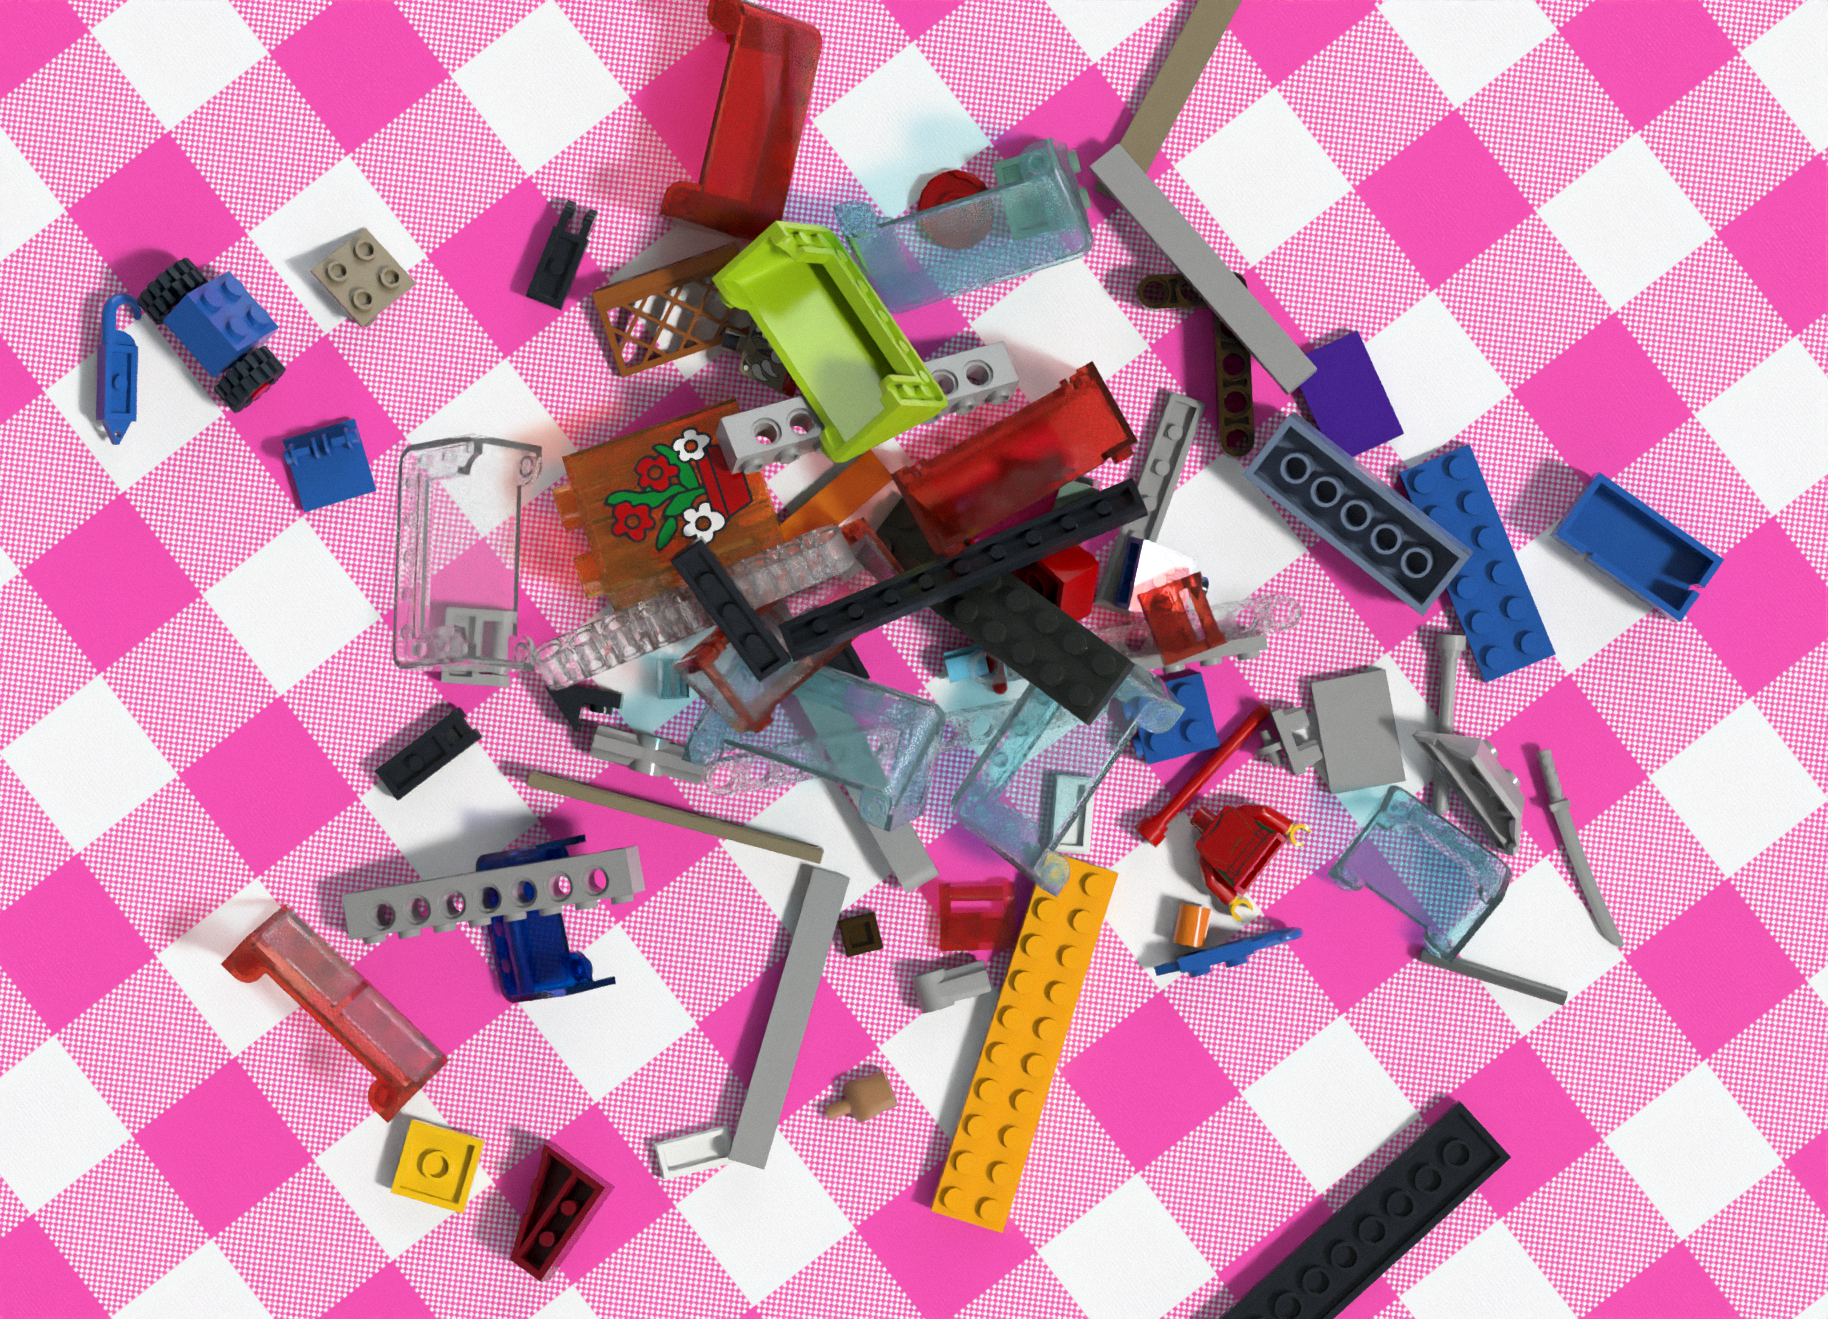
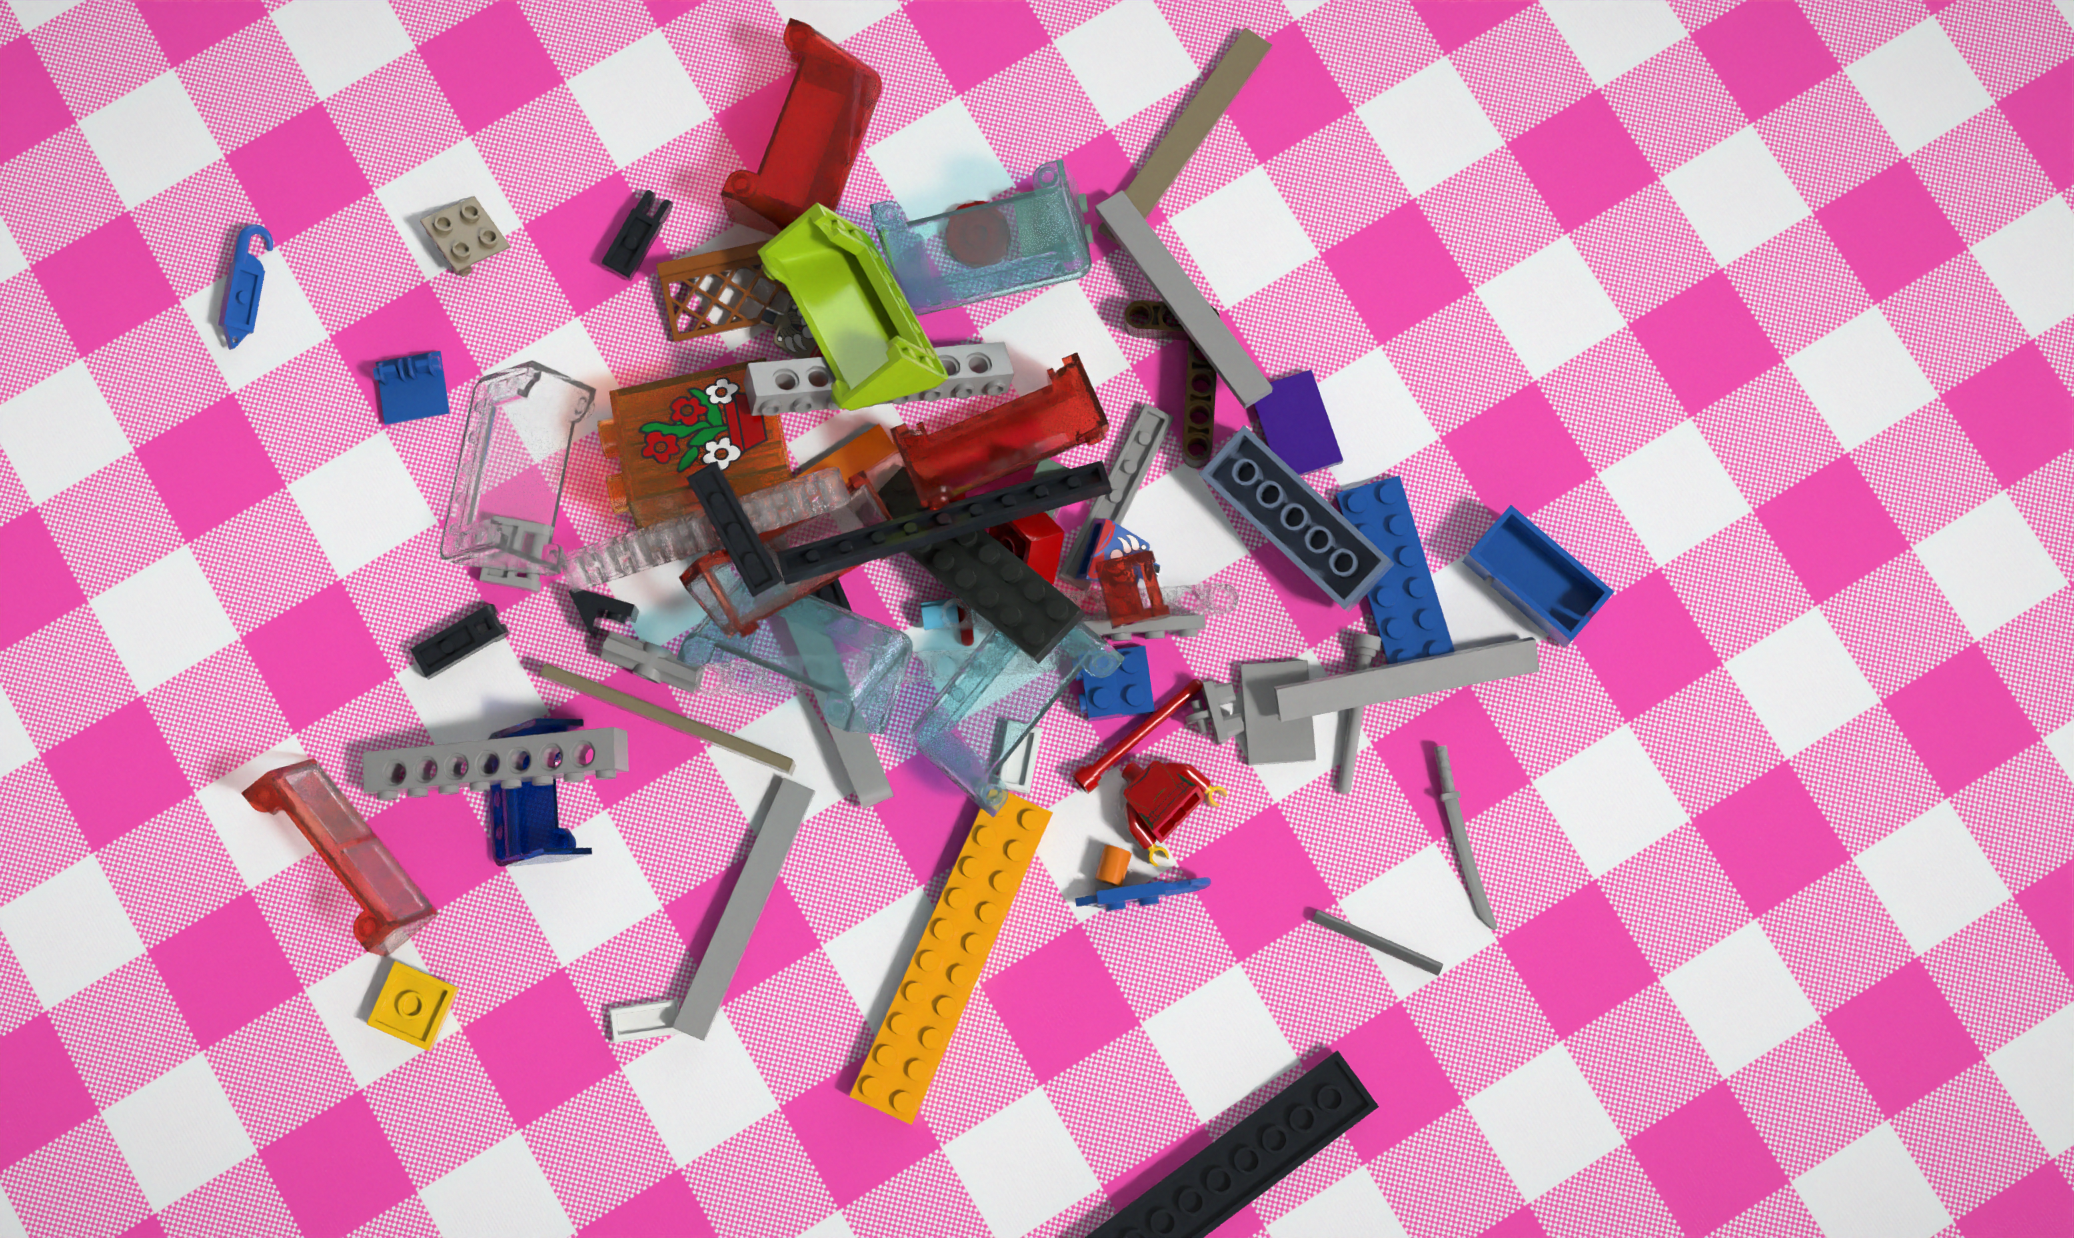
camera: 10 degrees right, 10 degrees down
(218, 327) = (335, 260): brick -> none
(558, 1211) = (513, 1059): dark red wedge -> none
(669, 683) = (680, 602): clear light blue piece -> none
(860, 934) = (818, 842): dark brown tile -> none
(864, 1098) = (803, 988): medium nougat piece -> none
(943, 987) = (883, 896): light grey piece -> none
(977, 929) = (923, 849): clear red plate -> none
(1424, 870) = (1323, 839): clear light blue windscreen -> none
(1480, 784) = (1381, 767): light grey wedge -> none
(1499, 681) = (1406, 679): none -> light grey tile

